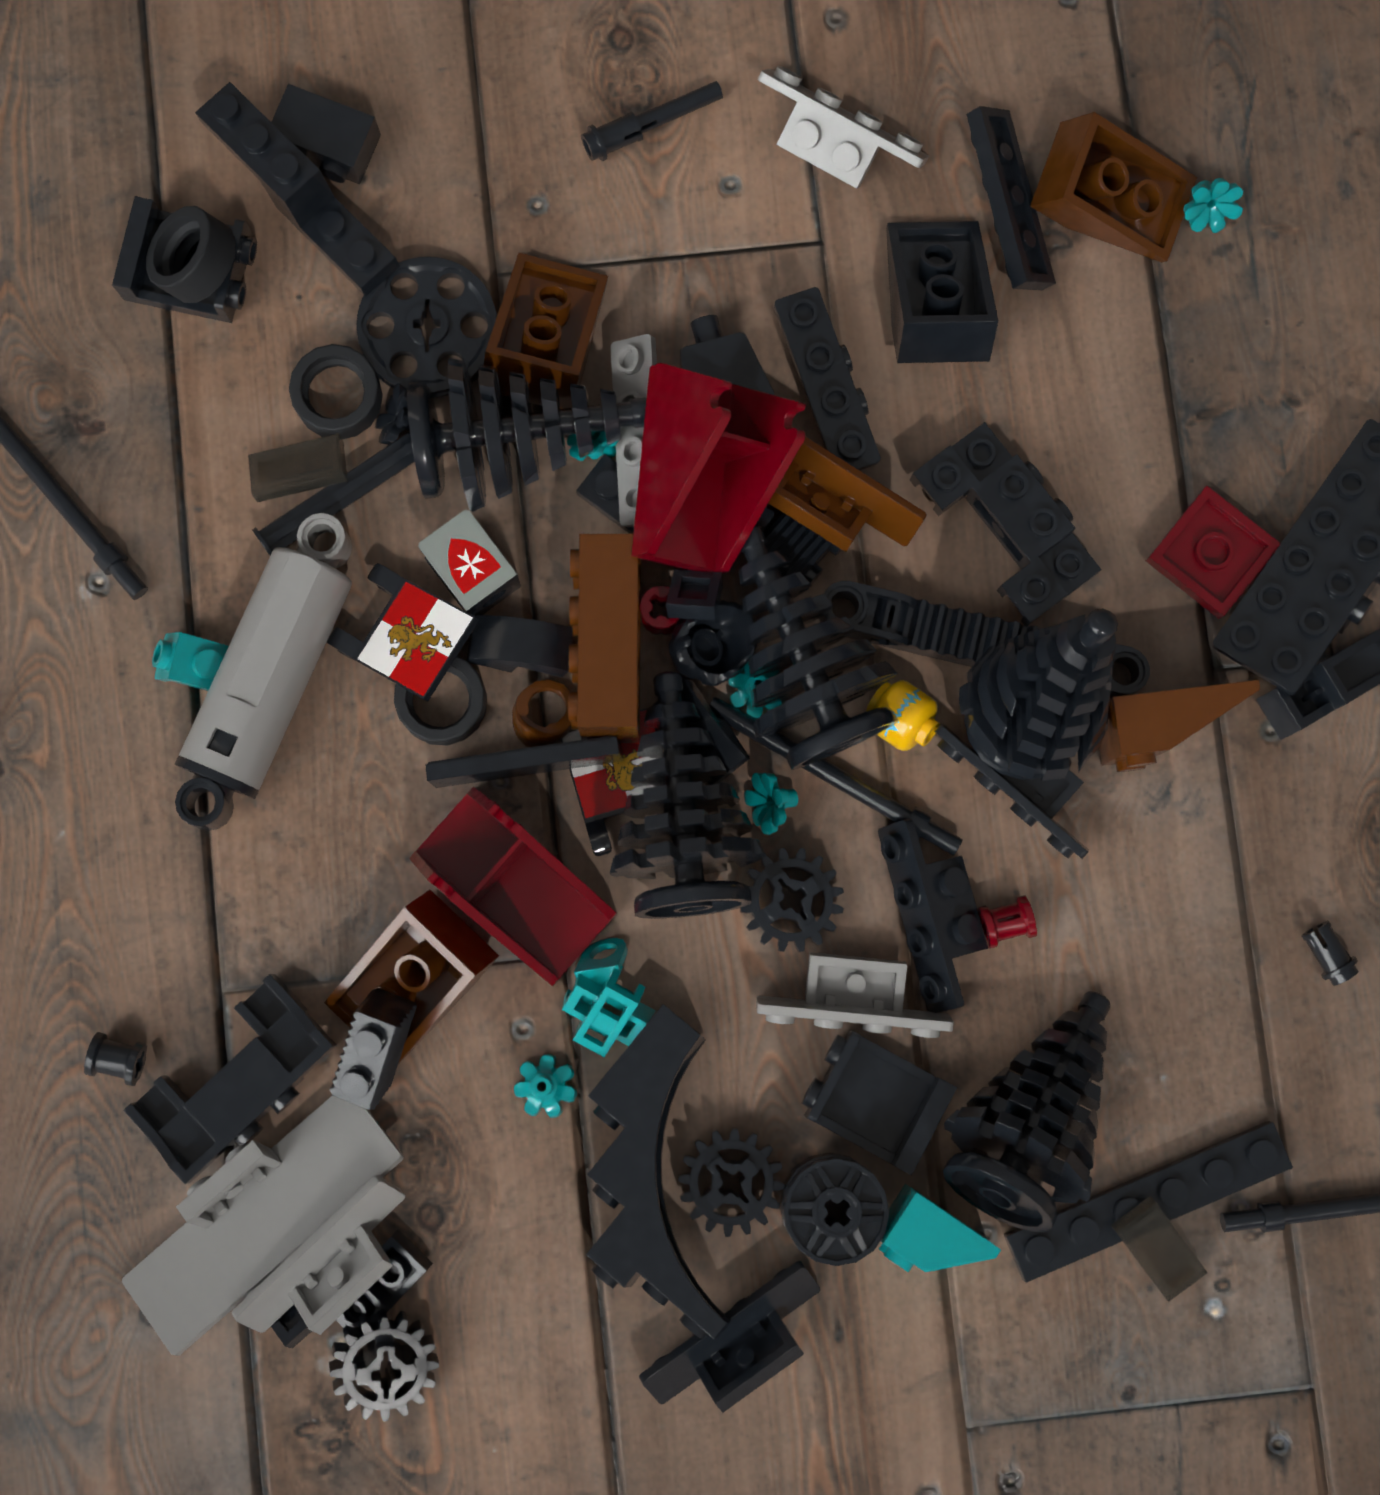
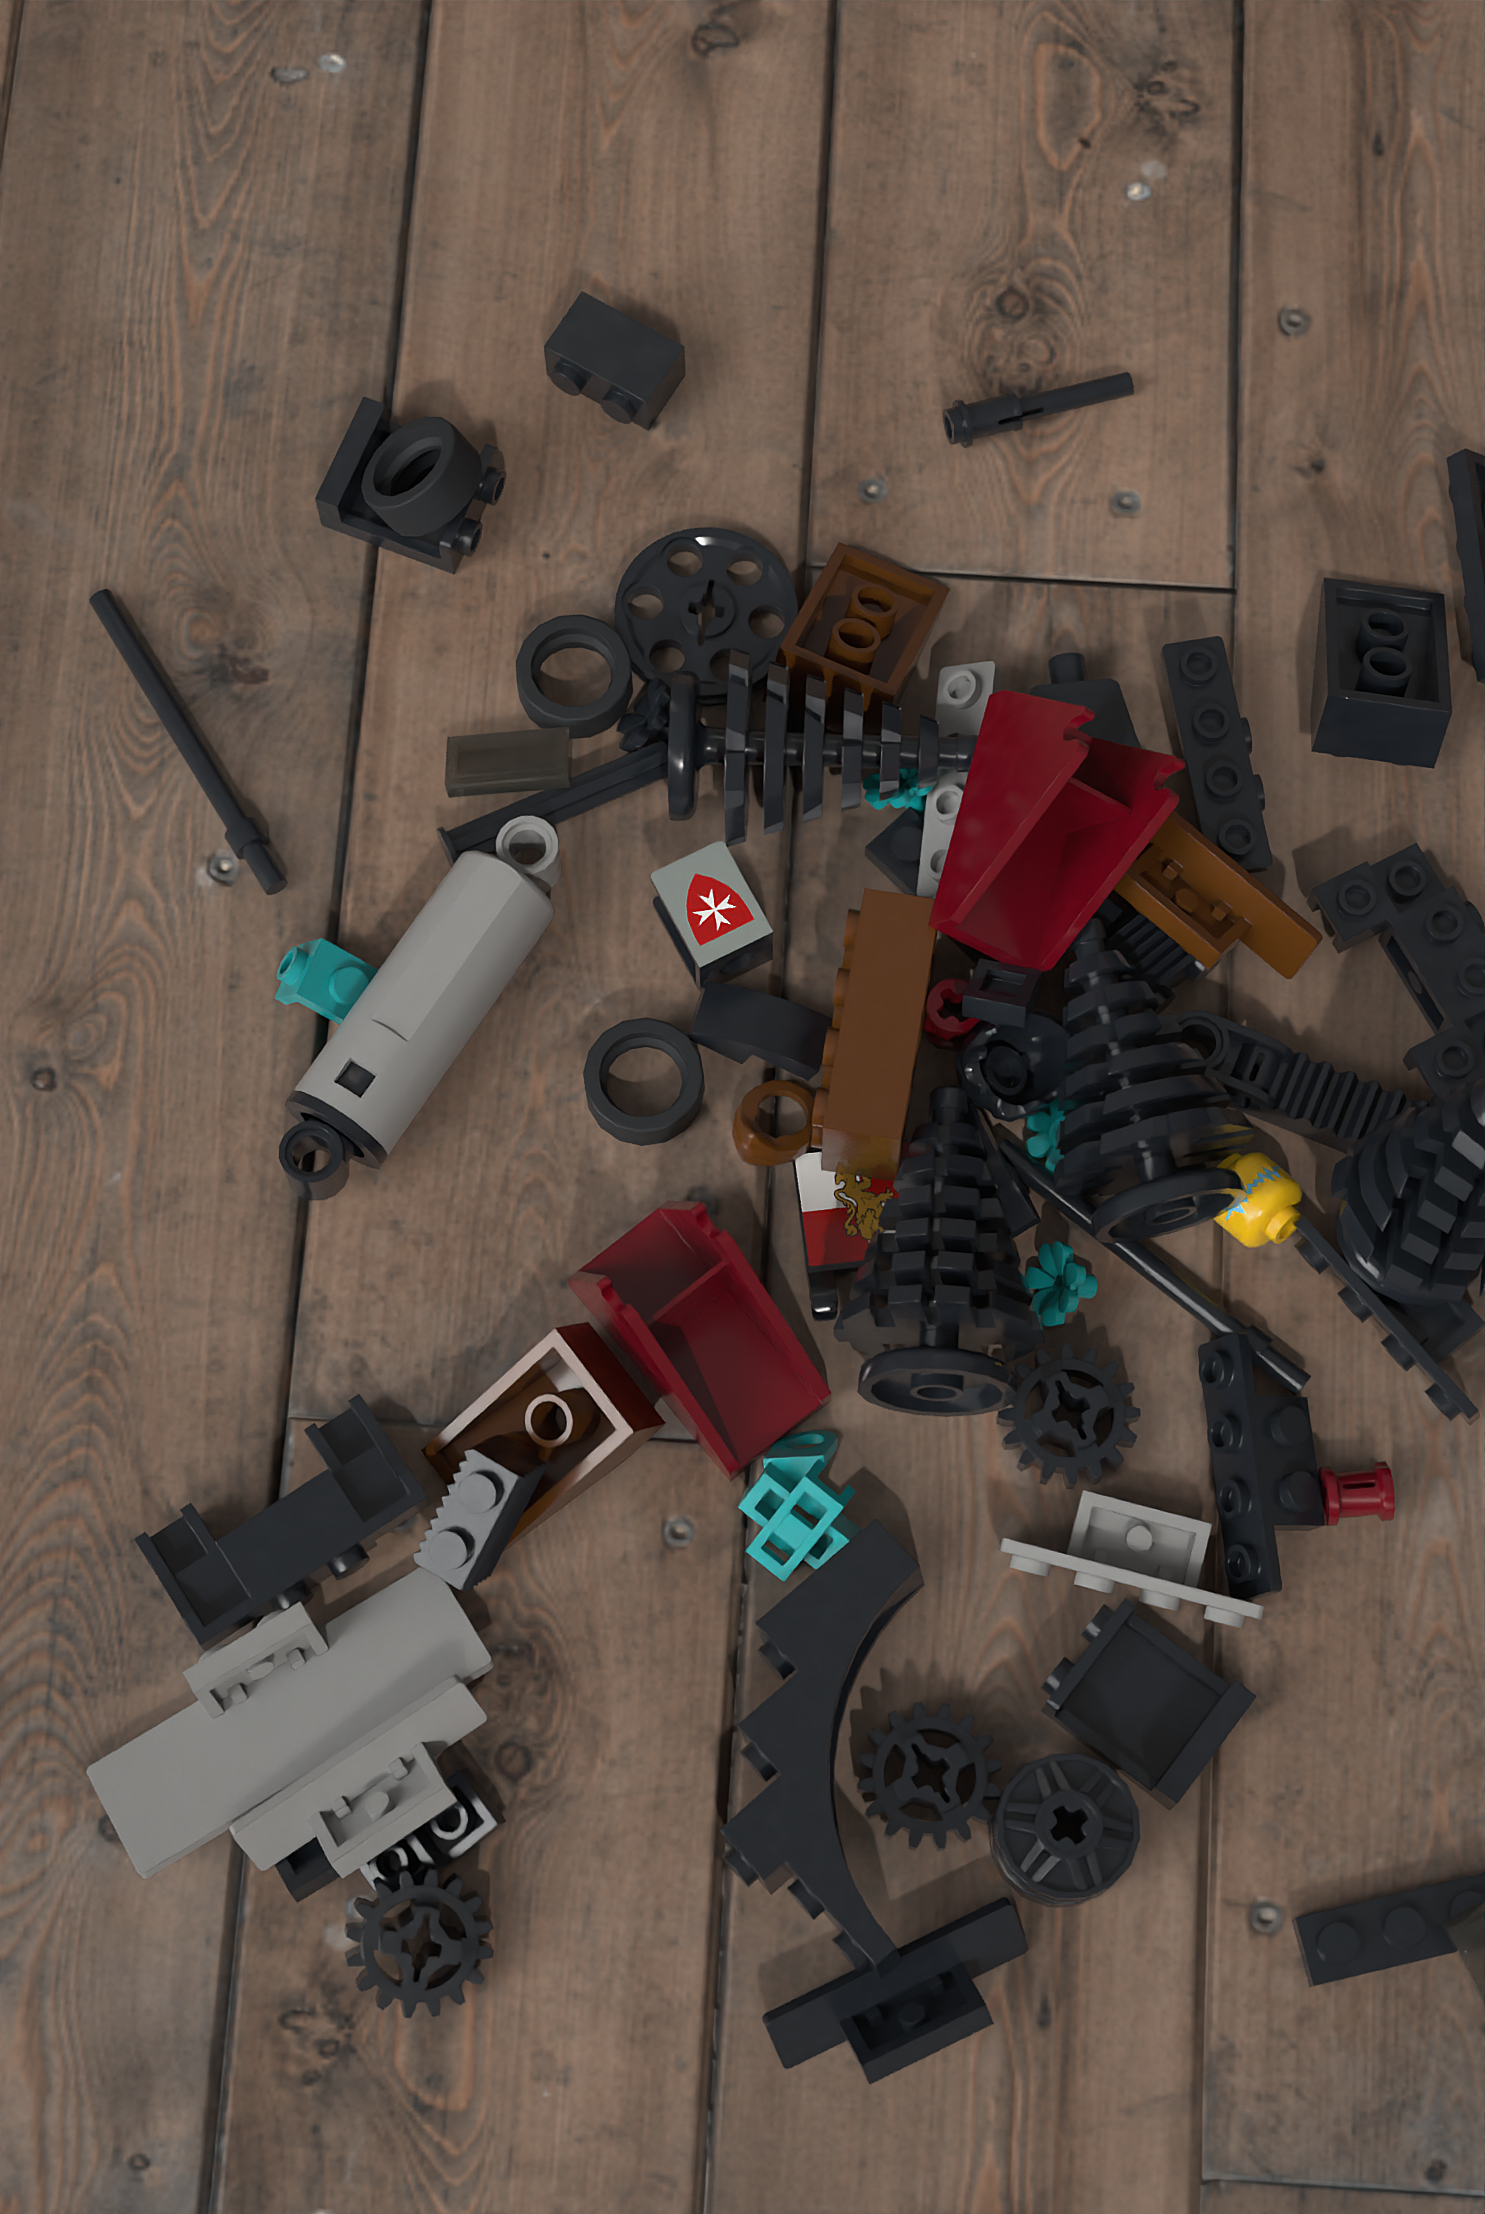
camera: 15 degrees right, 10 degrees down
(115, 1059) = (134, 1474): black bush -> none
(297, 188) = (571, 420): black bracket -> none
(411, 638) = (621, 994): flag -> none
(524, 761) = (742, 1177): black tile -> none
(555, 1086) = (697, 1623): teal plant -> none
(832, 135) = (1268, 461): bracket -> none
(930, 1236) = (1192, 1887): teal slope -> none
(1033, 1124) = (1352, 1765): black plant -> none

